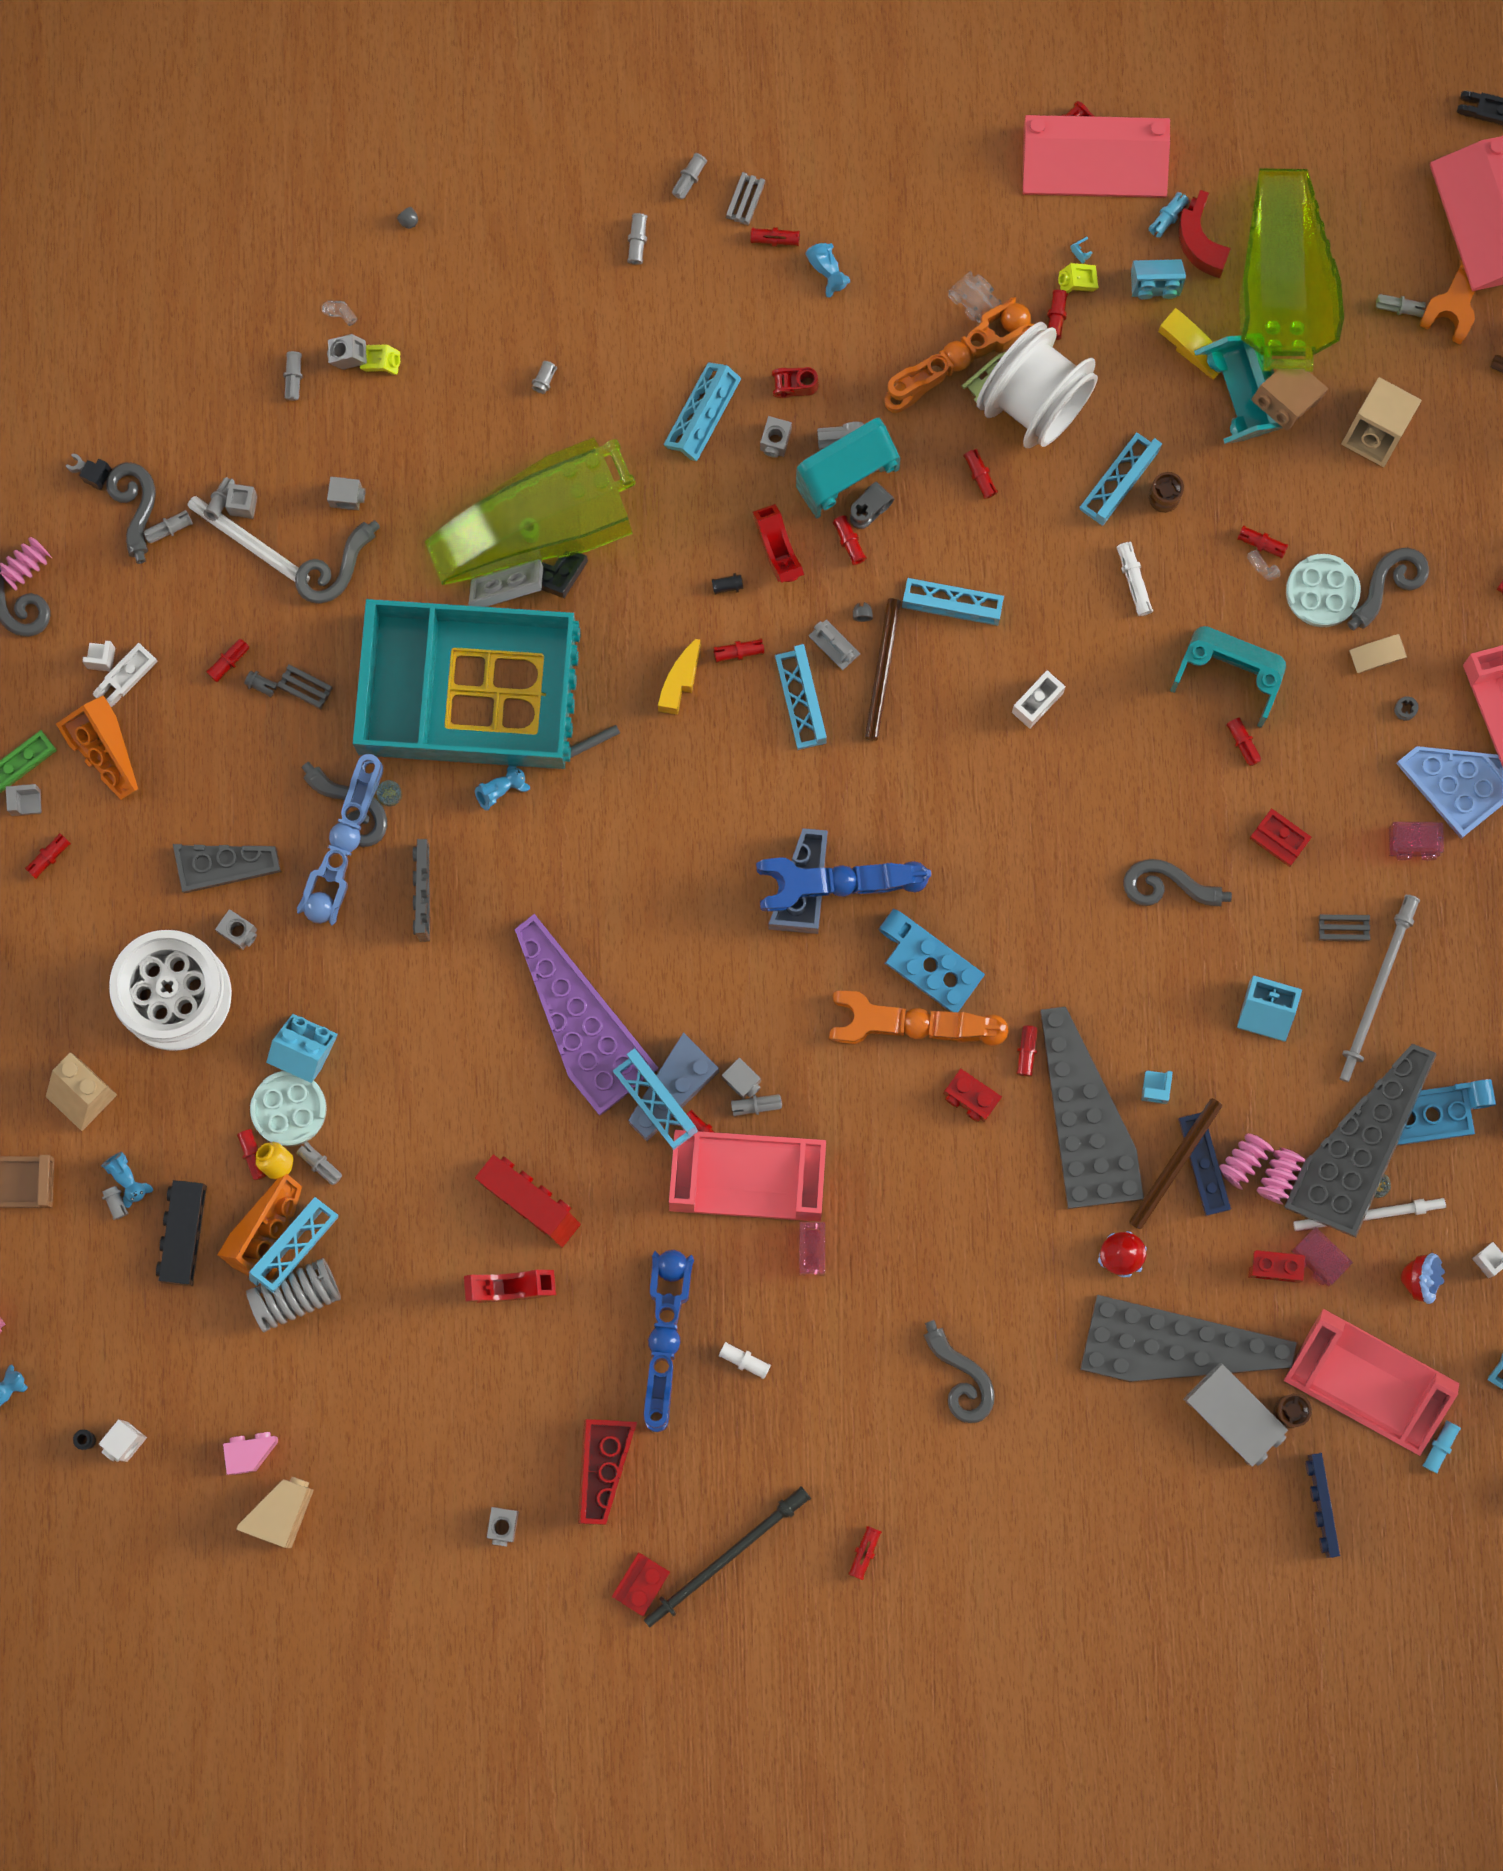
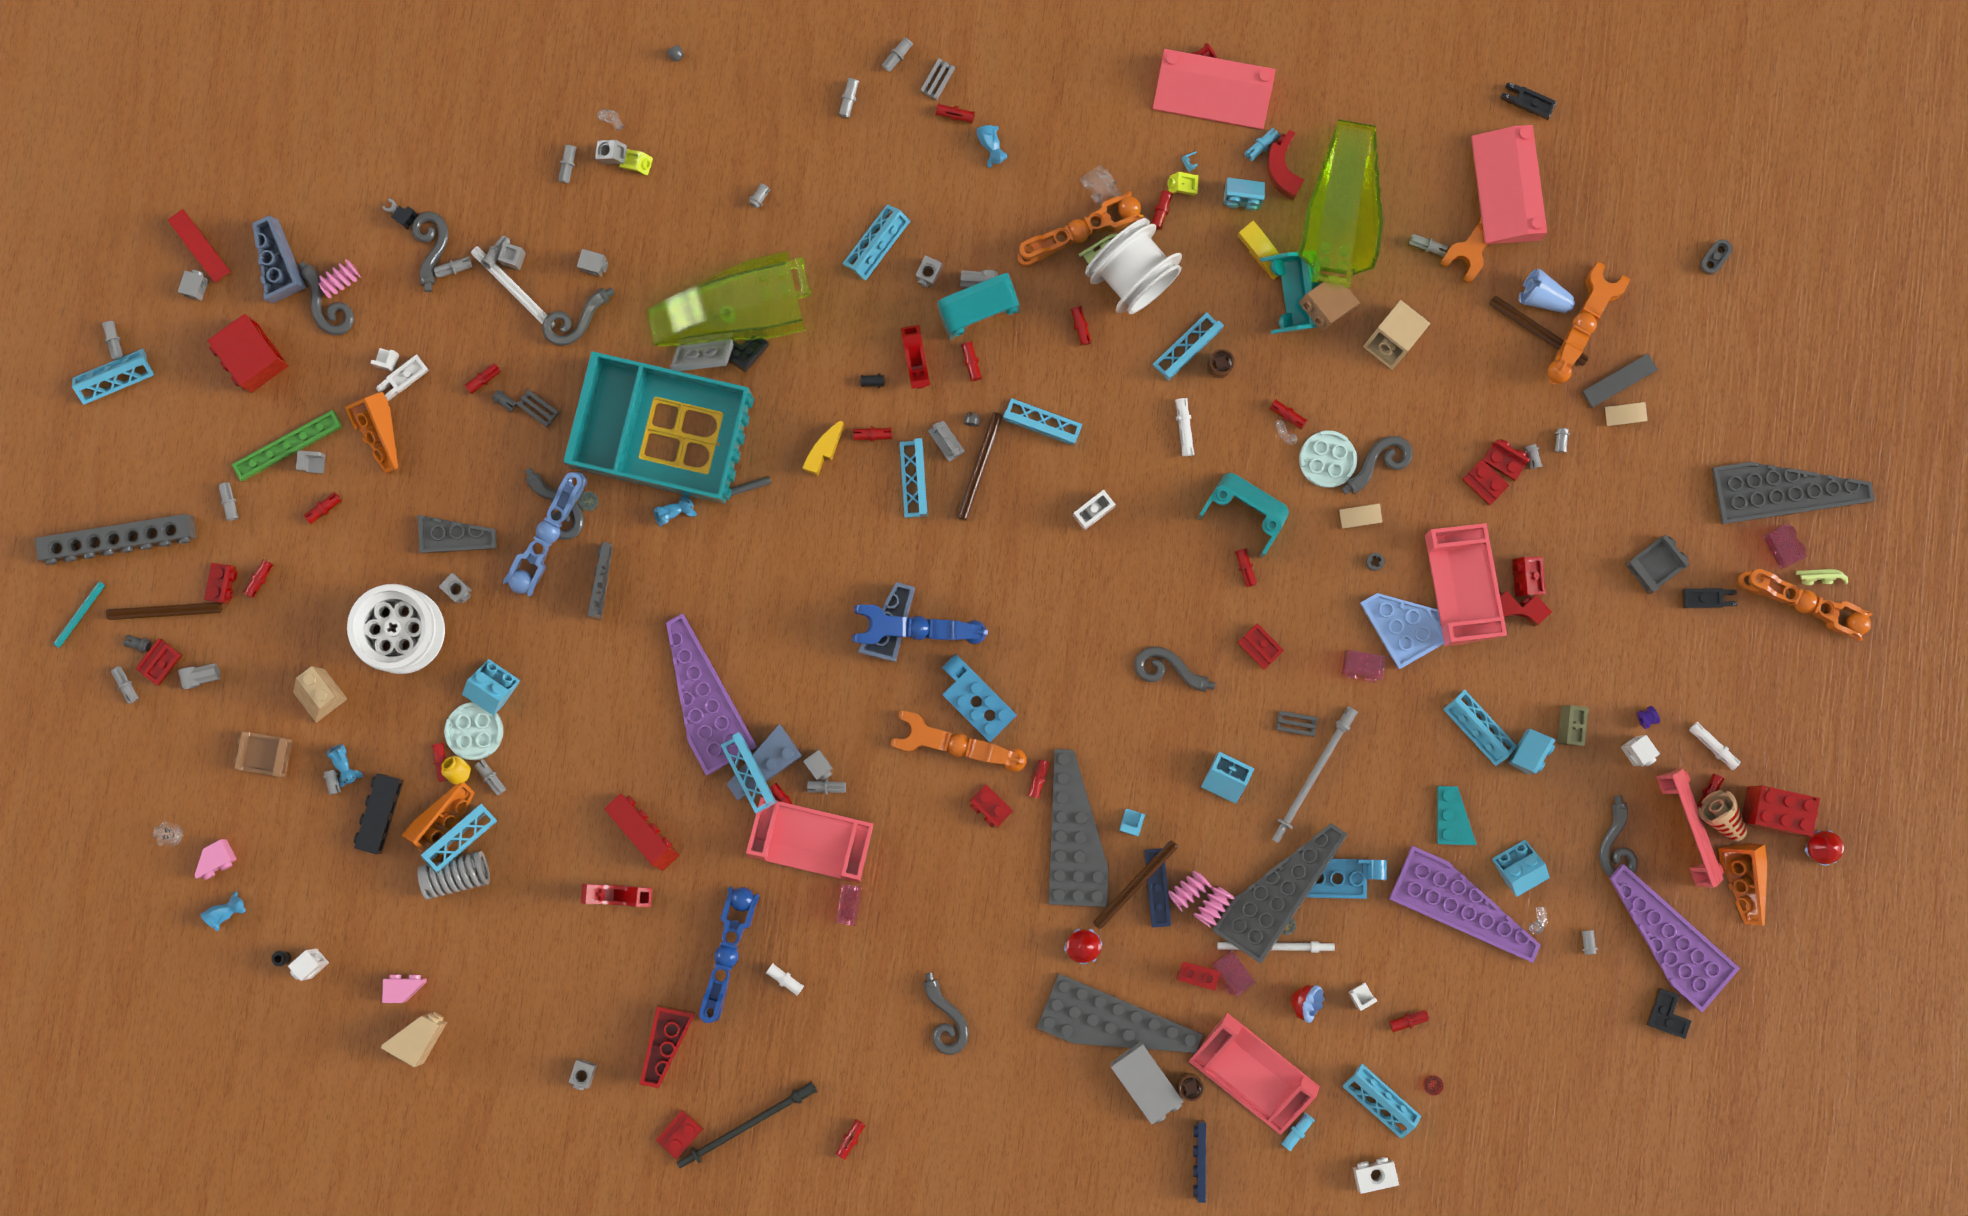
camera: 10 degrees right, 5 degrees up
(793, 382) = (949, 230): red piece -> none
(872, 503) = (994, 335): dark grey piece -> none

